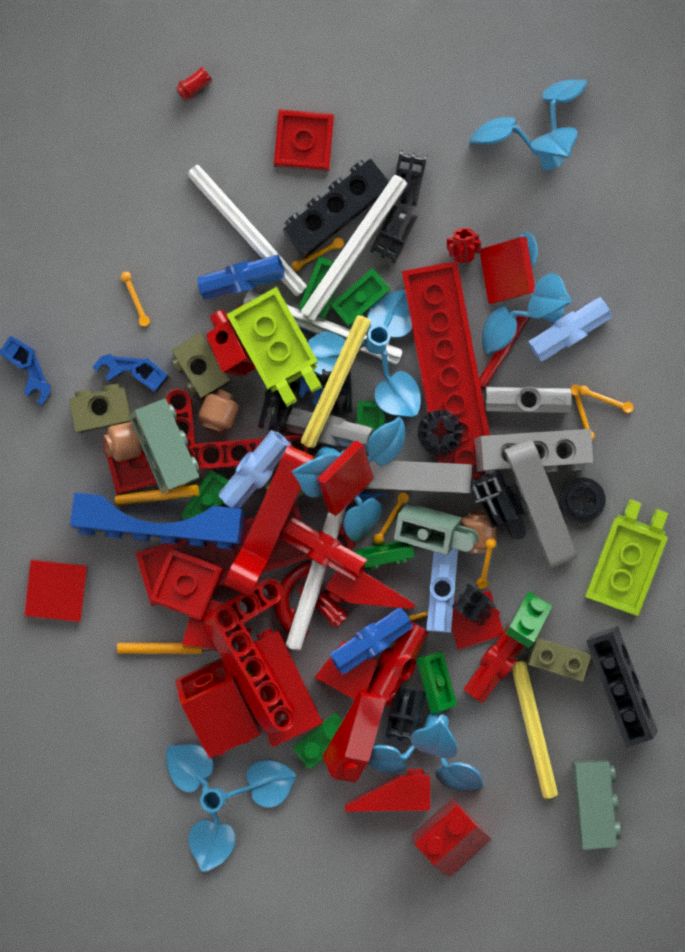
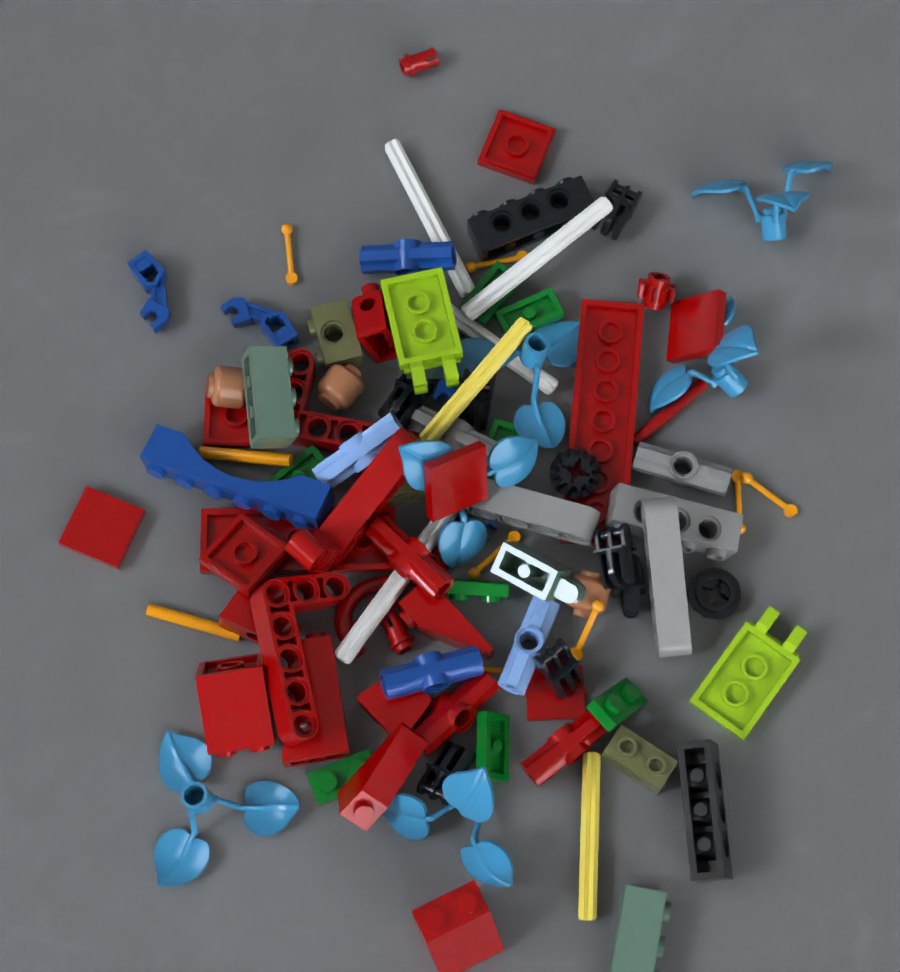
camera: 20 degrees right, 15 degrees down
(83, 408) = (198, 341): olive brick -> none
(392, 236) = (584, 259): black arm -> none
(401, 793) = (410, 861): red slope -> none
(570, 329) = (748, 408): light blue piece -> none

